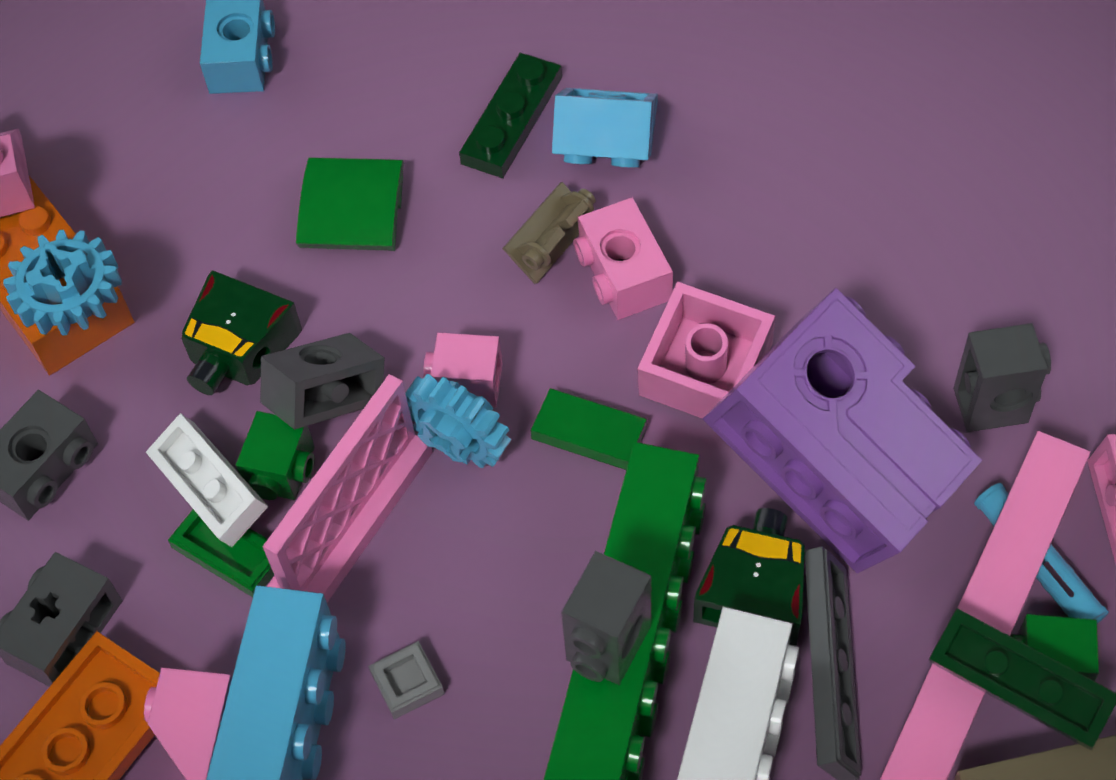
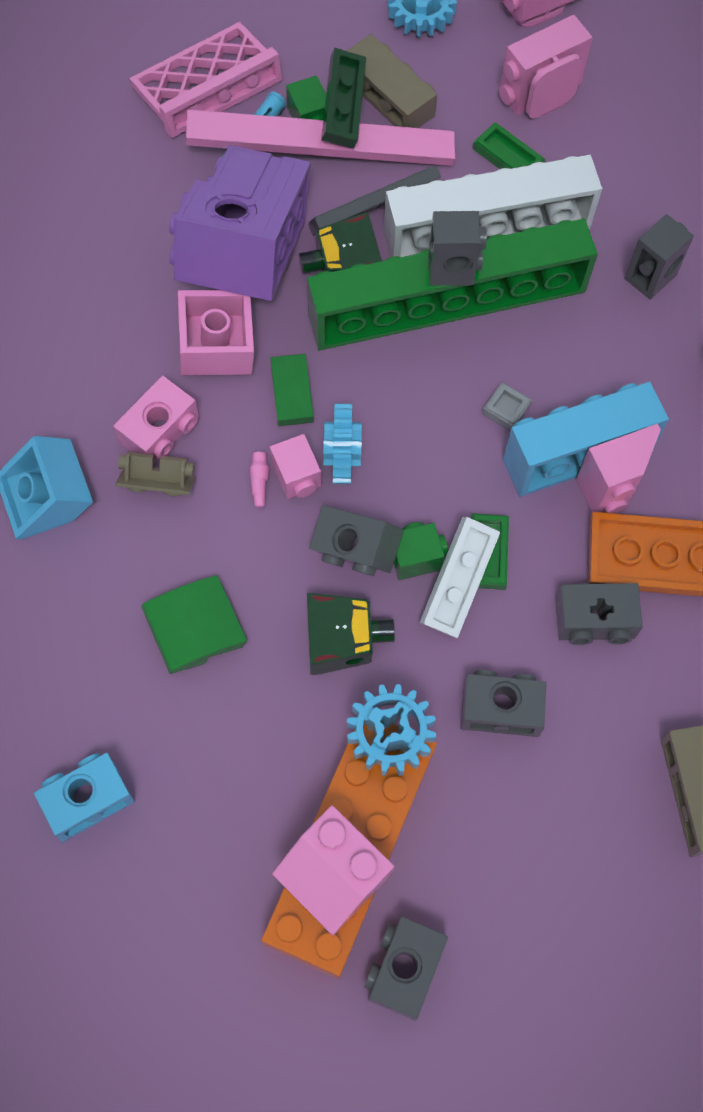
camera: 125 degrees left, 10 degrees up
(348, 496) = (429, 482): bright pink fence -> none
(510, 115) = (58, 562): dark green plate -> none
(510, 348) = (259, 476): none -> bright pink piece
(1001, 377) = (152, 174): dark grey brick -> none

